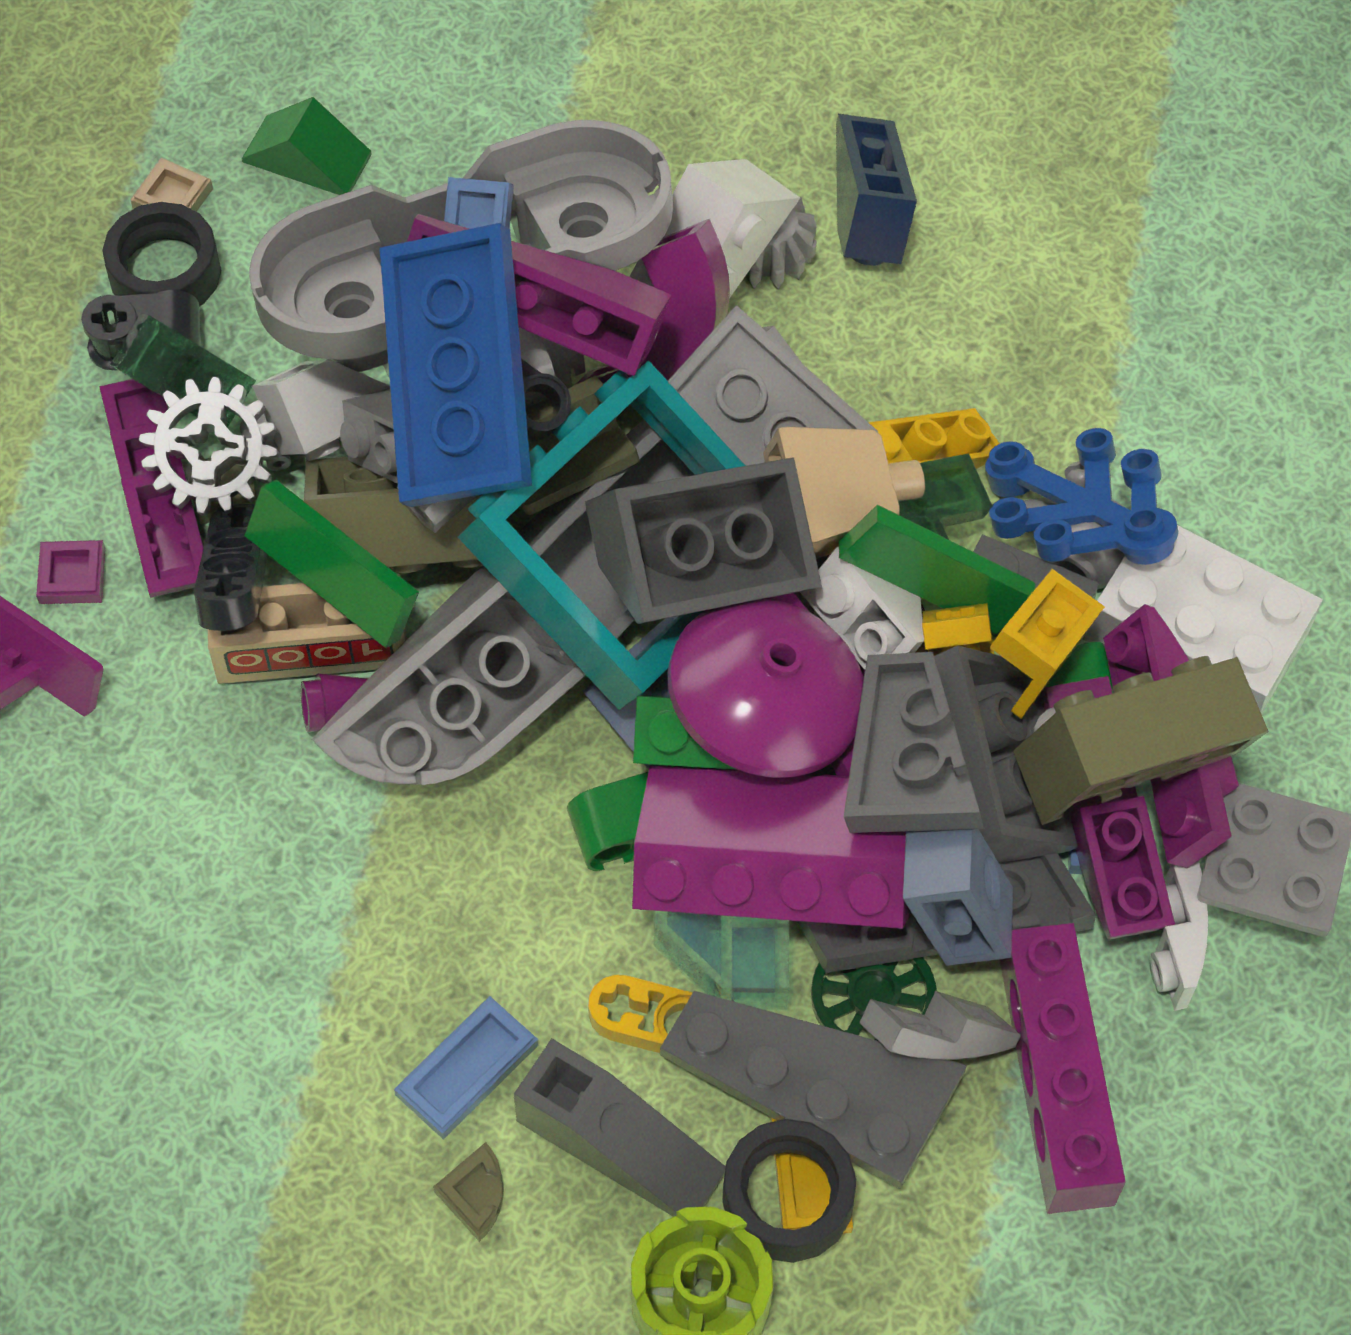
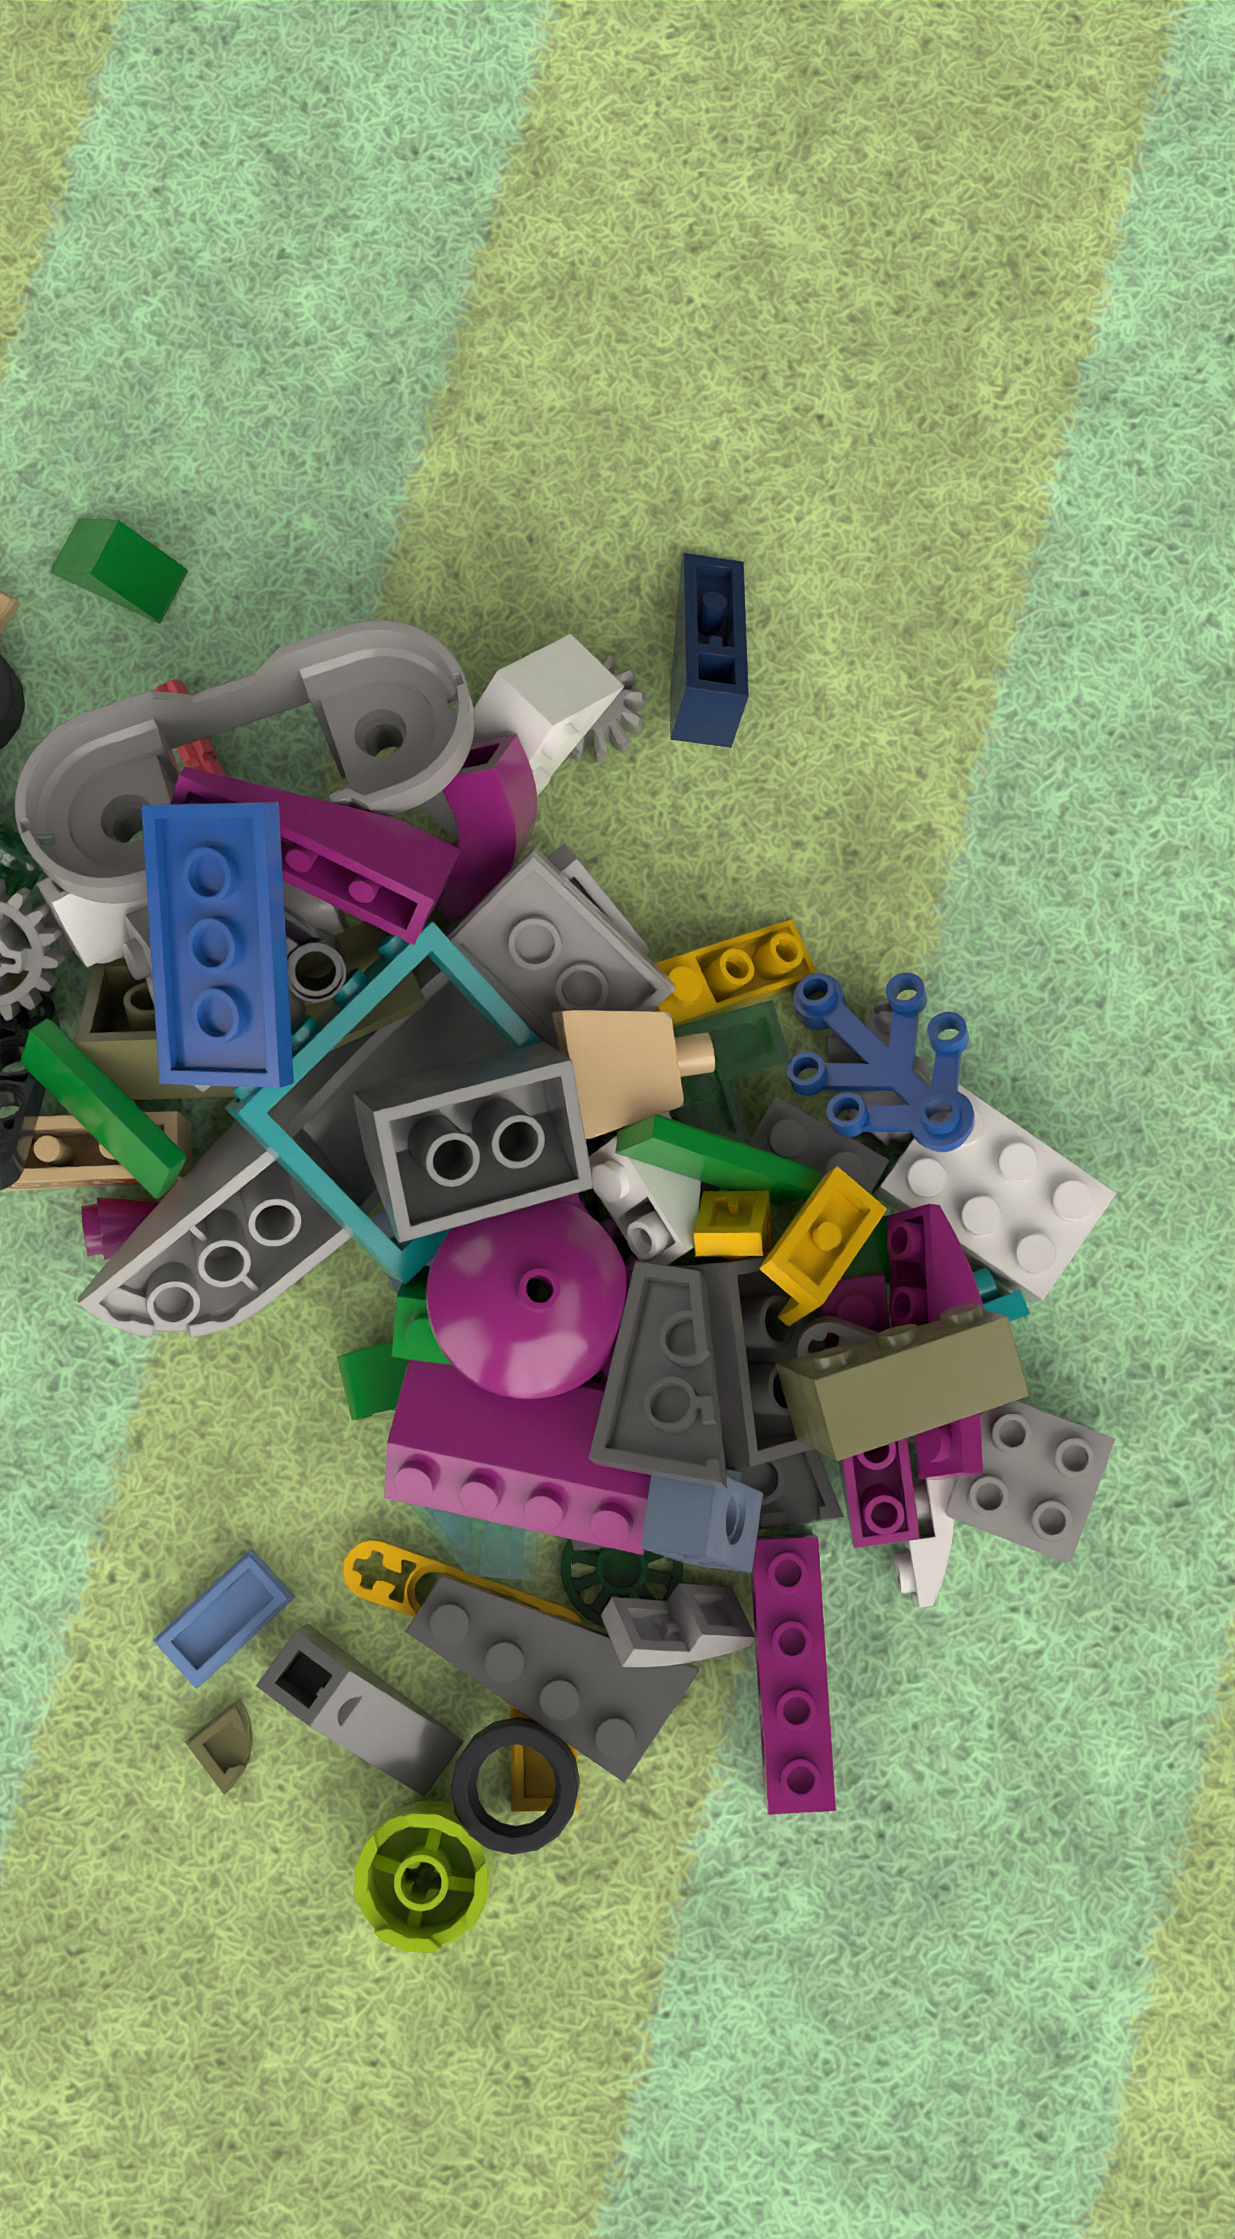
camera: 10 degrees right, 20 degrees up
(478, 202) = (267, 721): medium blue tile -> none

